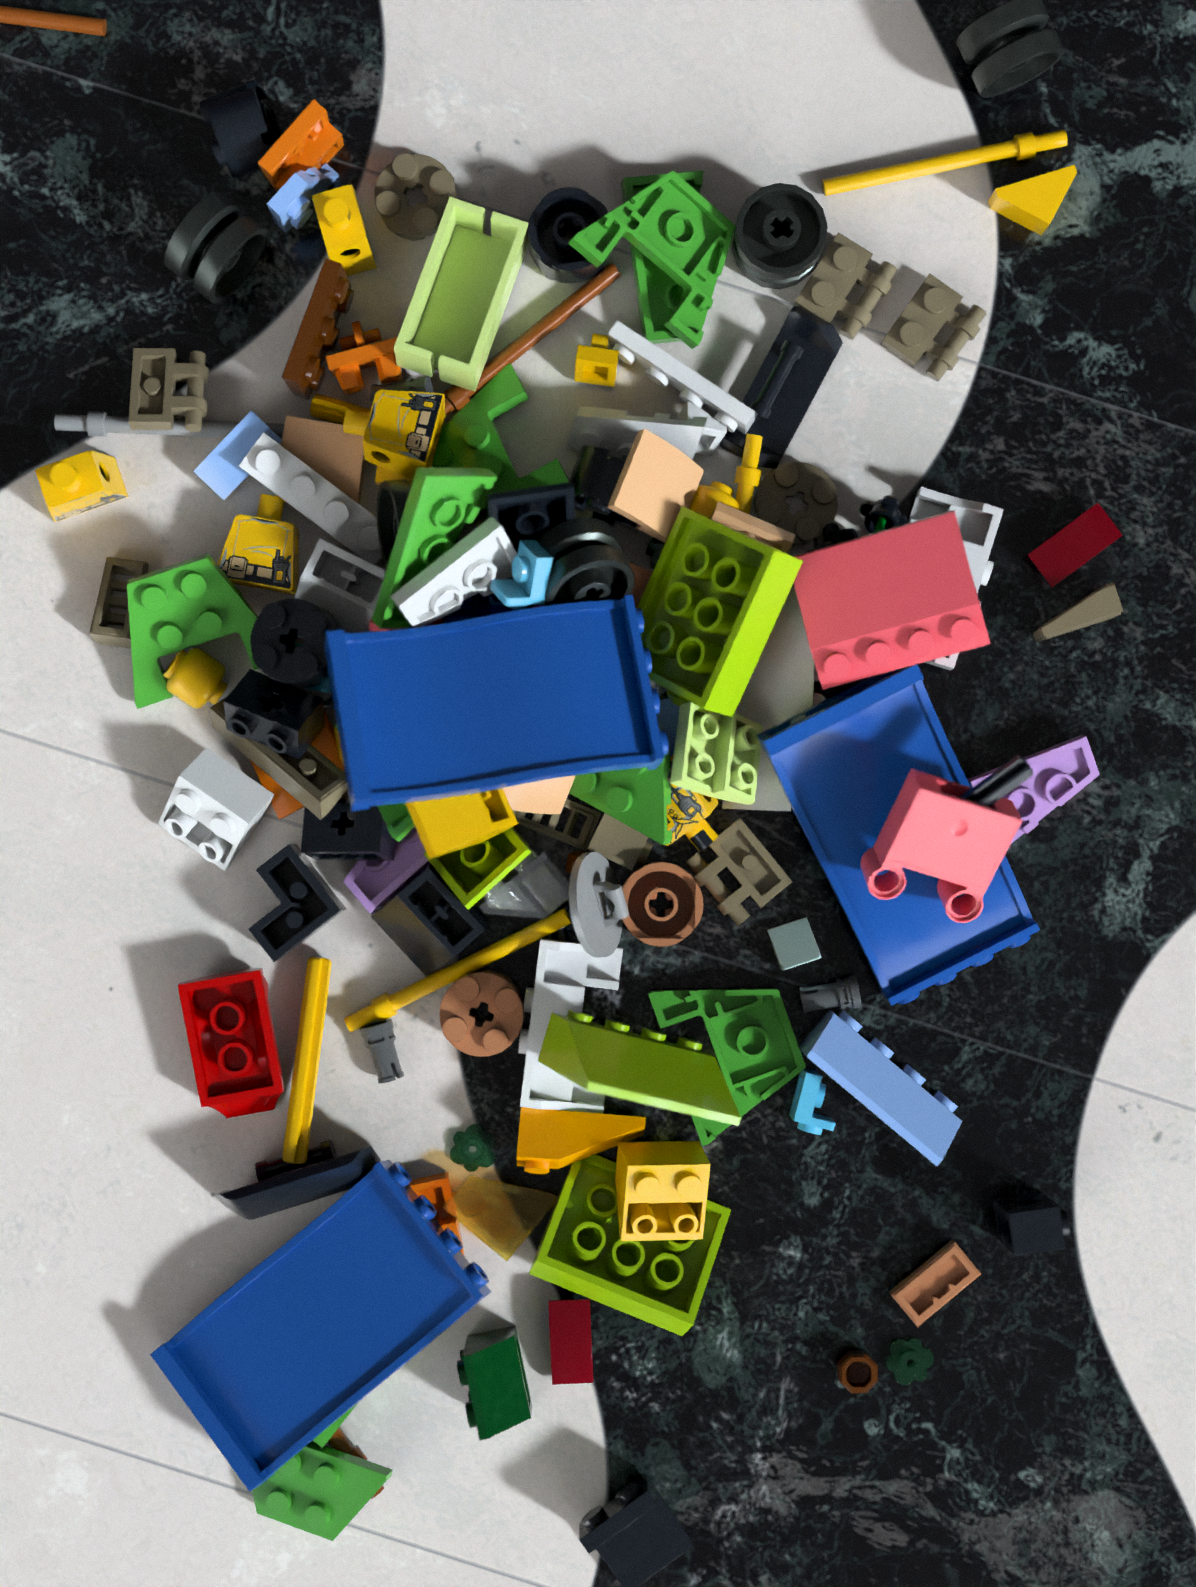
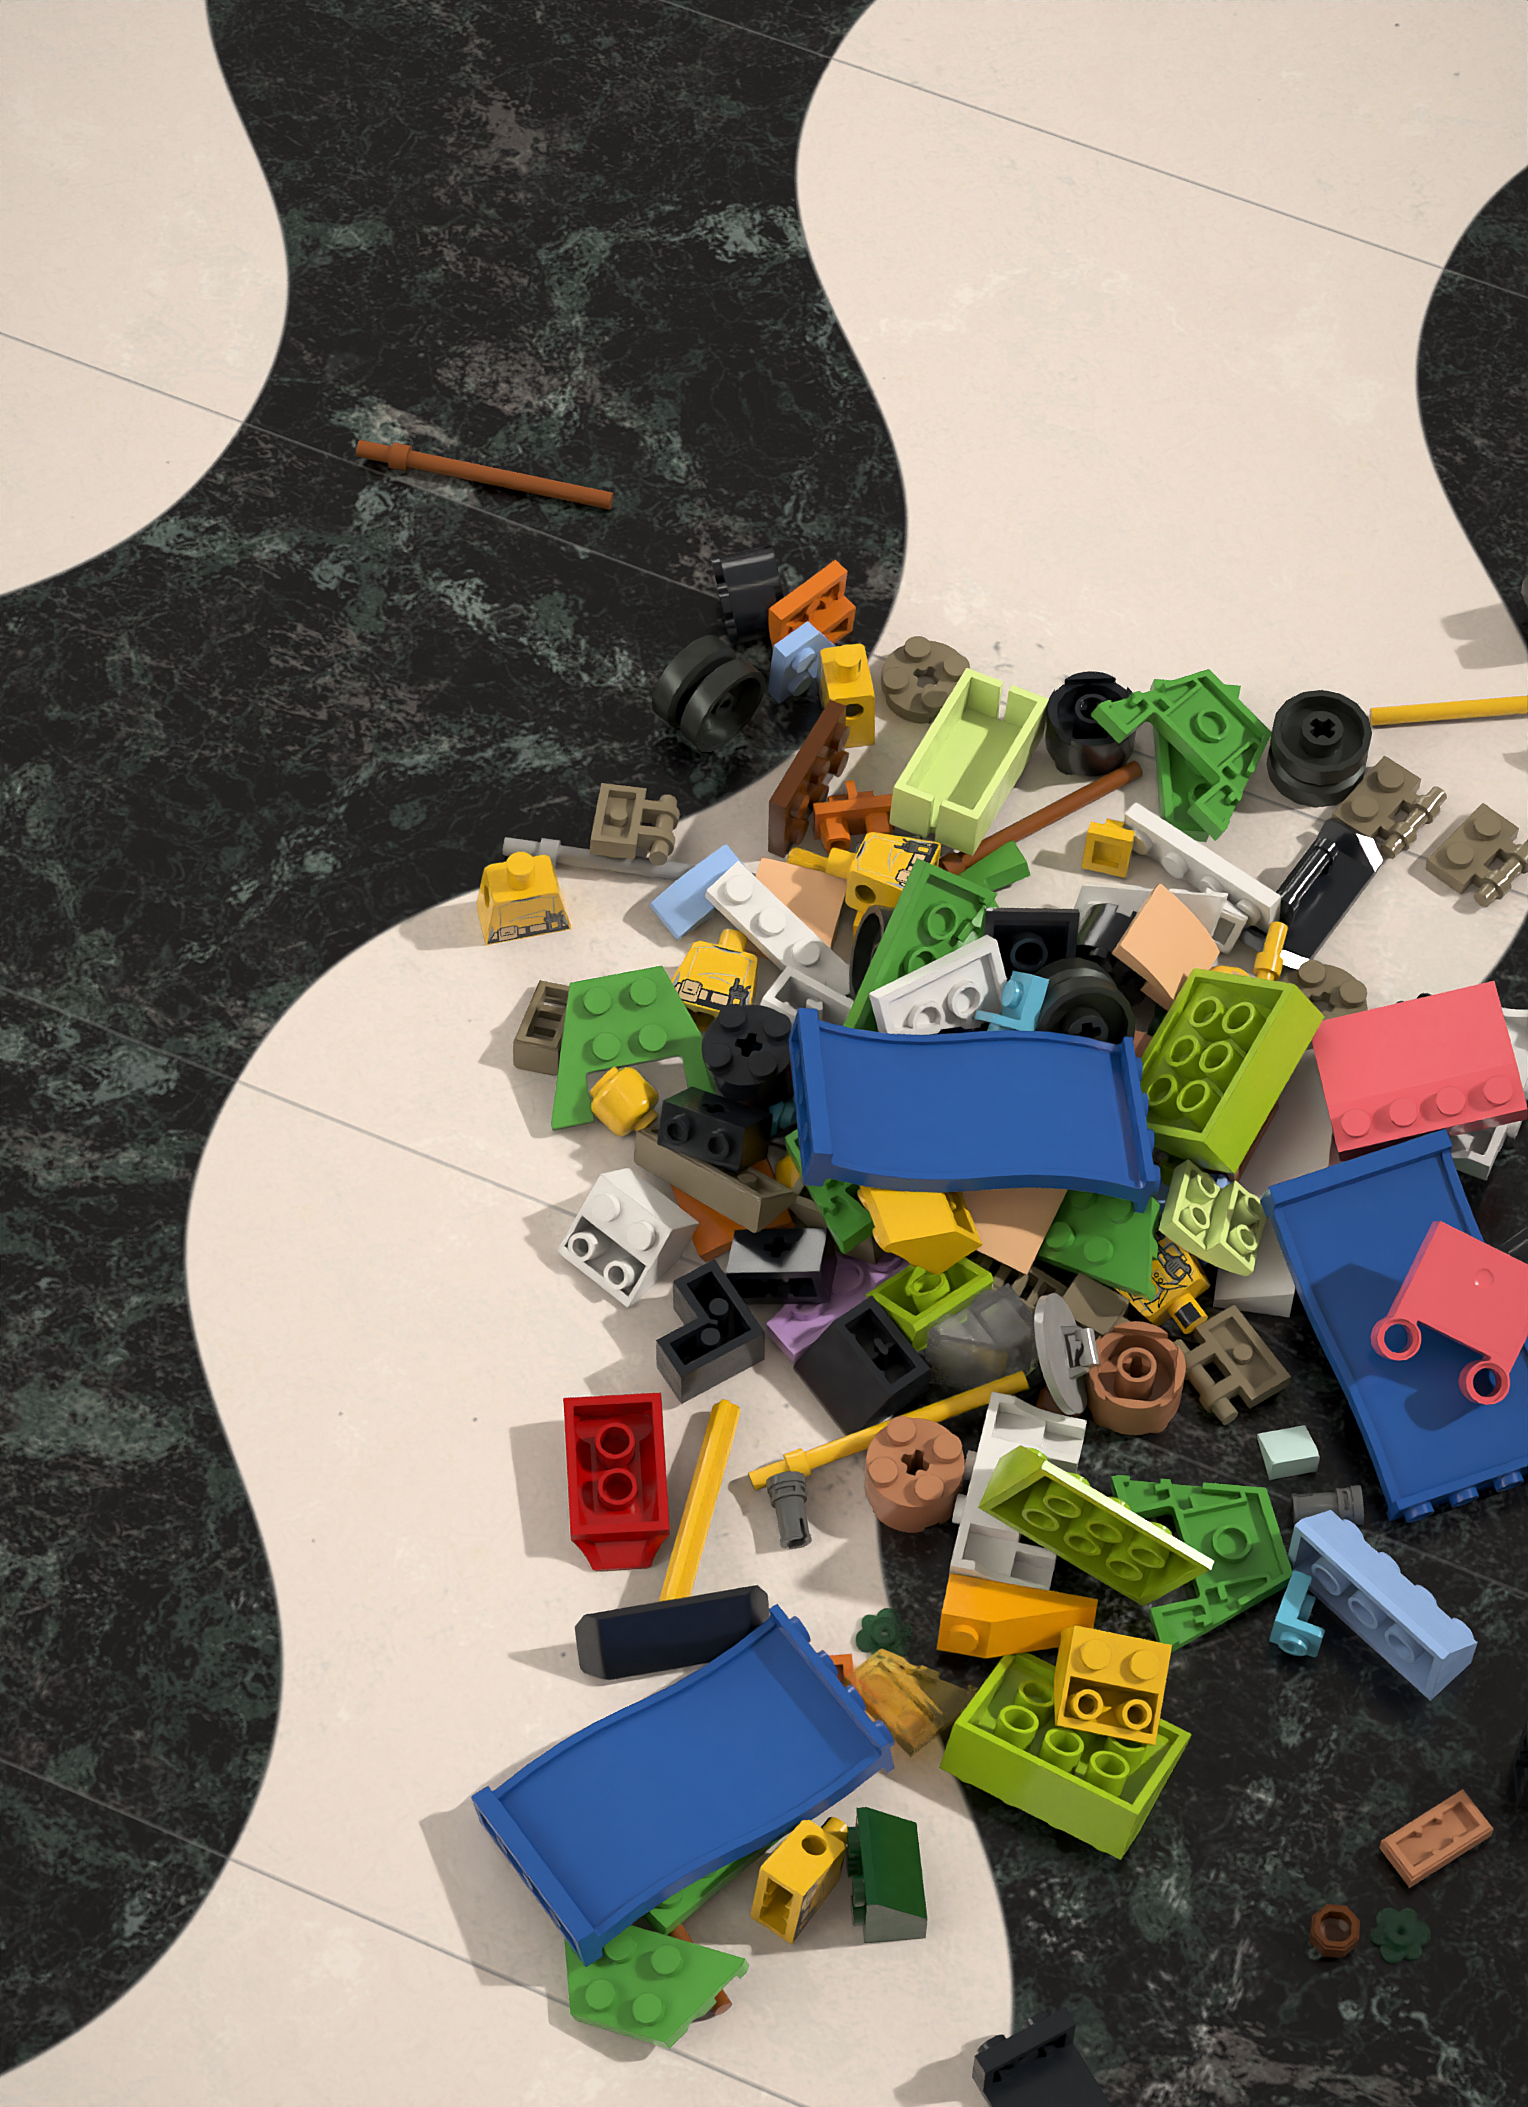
camera: 10 degrees right, 30 degrees down
(418, 1400) = (799, 1877): none -> yellow torso
(570, 1341) = (982, 1856): dark red slope -> none

